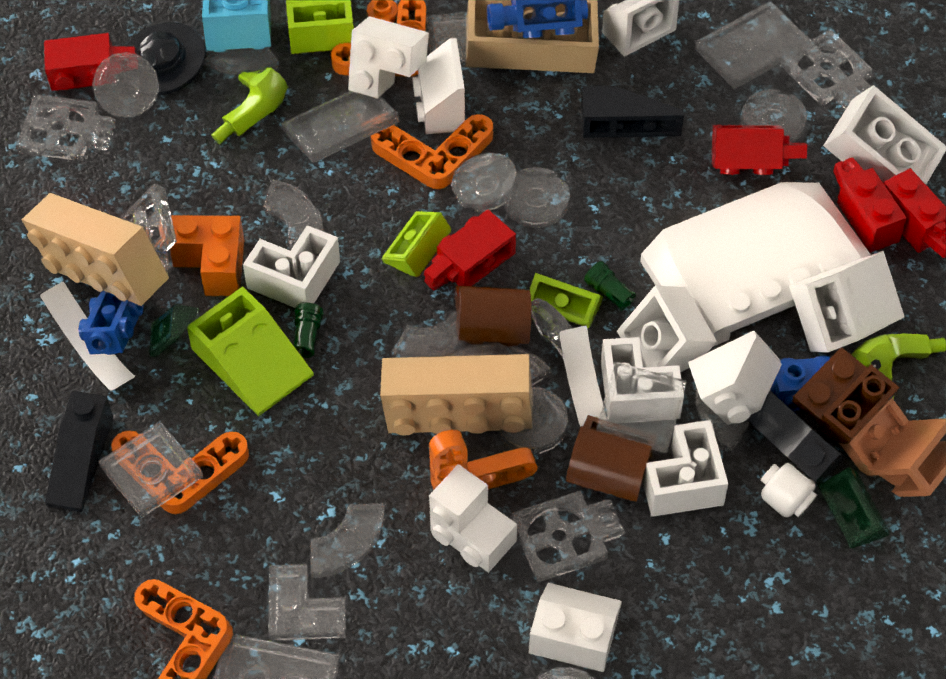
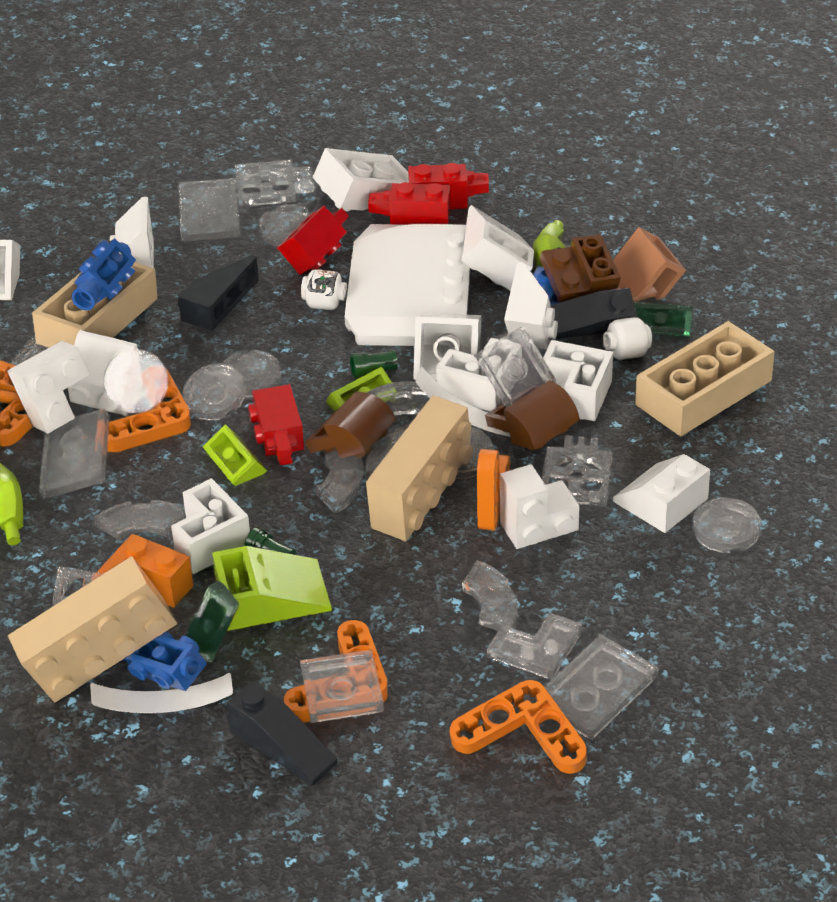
camera: 60 degrees left, 15 degrees down
(436, 114) = (135, 380): none -> clear tile
(687, 192) = (323, 289): none -> white head
(764, 589) = (704, 378): none -> tan brick

